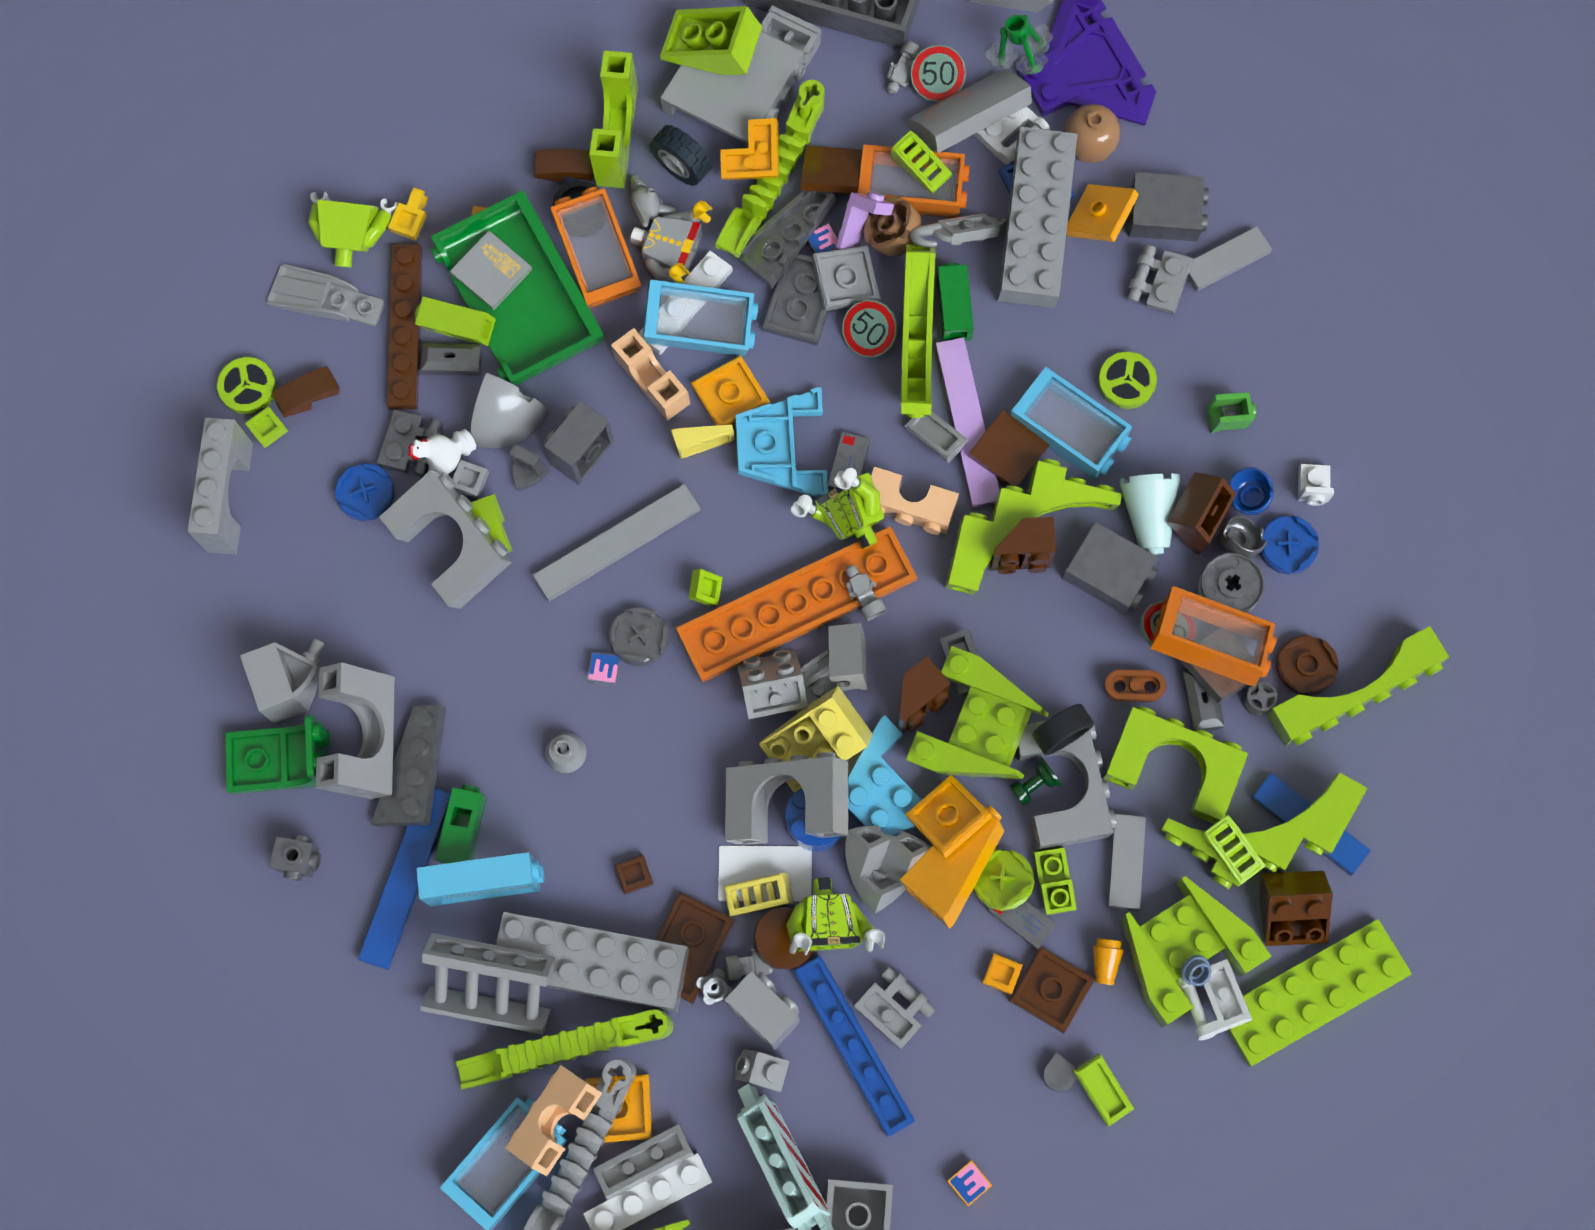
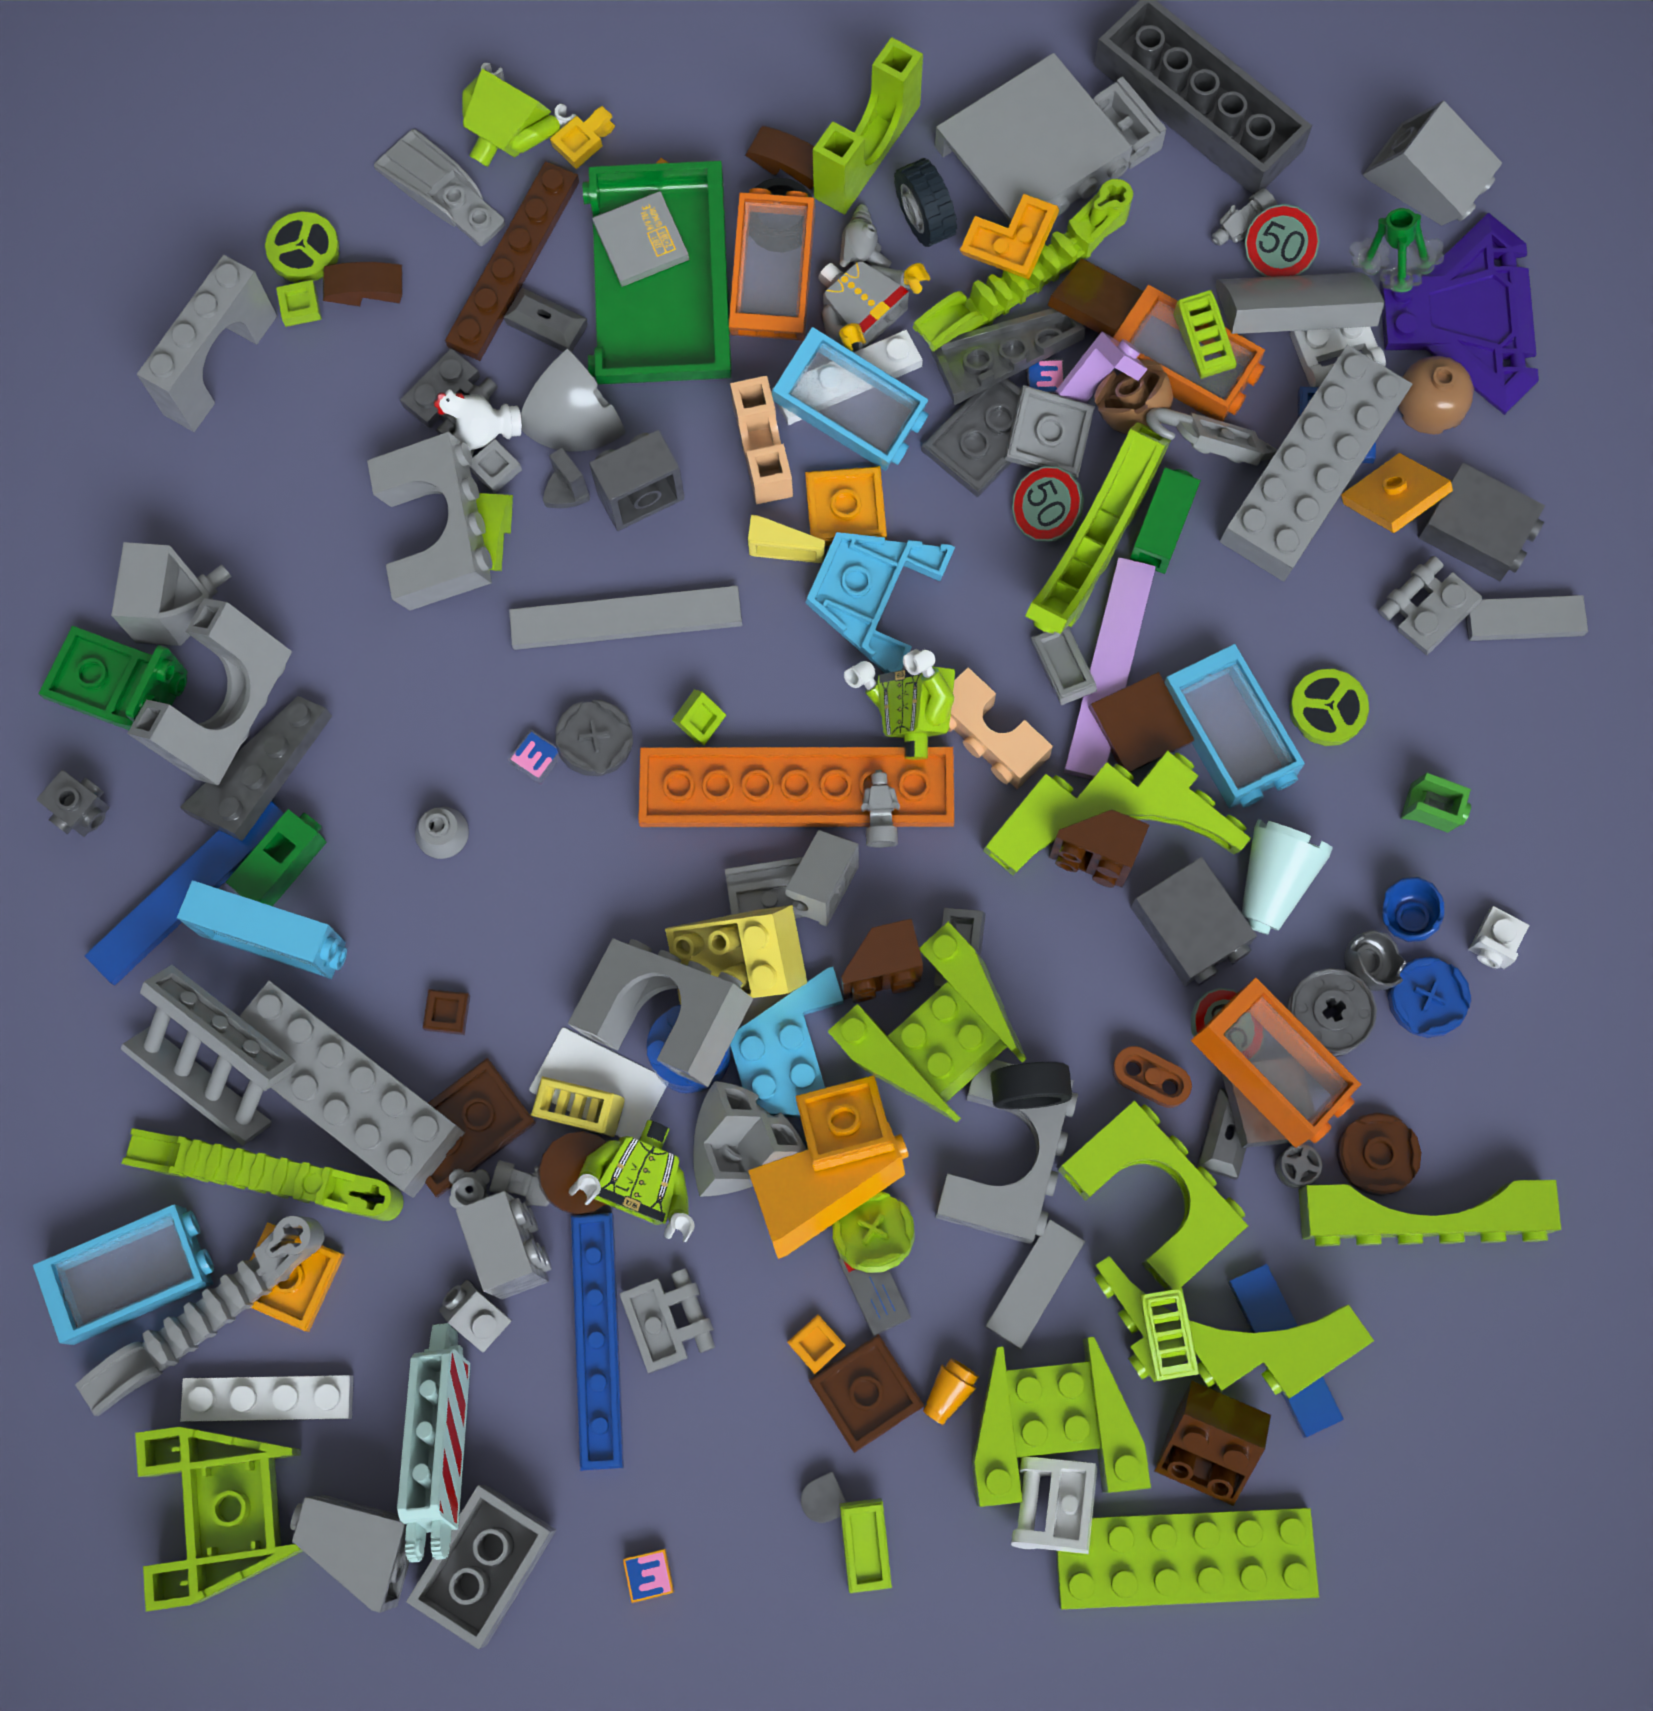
camera: 25 degrees right, 0 degrees up
(364, 491) = (370, 425): blue tile -> none
(454, 321) = (569, 278): lime brick -> none
(535, 1138) = (163, 1265): light nougat arch -> none
(643, 1162) = (281, 1353): light grey plate -> none
(713, 39) = (1031, 84): lime slope -> none
(772, 684) = (716, 866): light grey bracket -> none
(850, 454) = (952, 641): flat silver tile -> none
(1043, 776) = (986, 1131): dark green piece -> none
(1054, 880) = (936, 1263): lime slope -> none
(1195, 970) = (1048, 1458): sand blue plate -> none
(1201, 510) = (1338, 902): reddish brown slope -> none

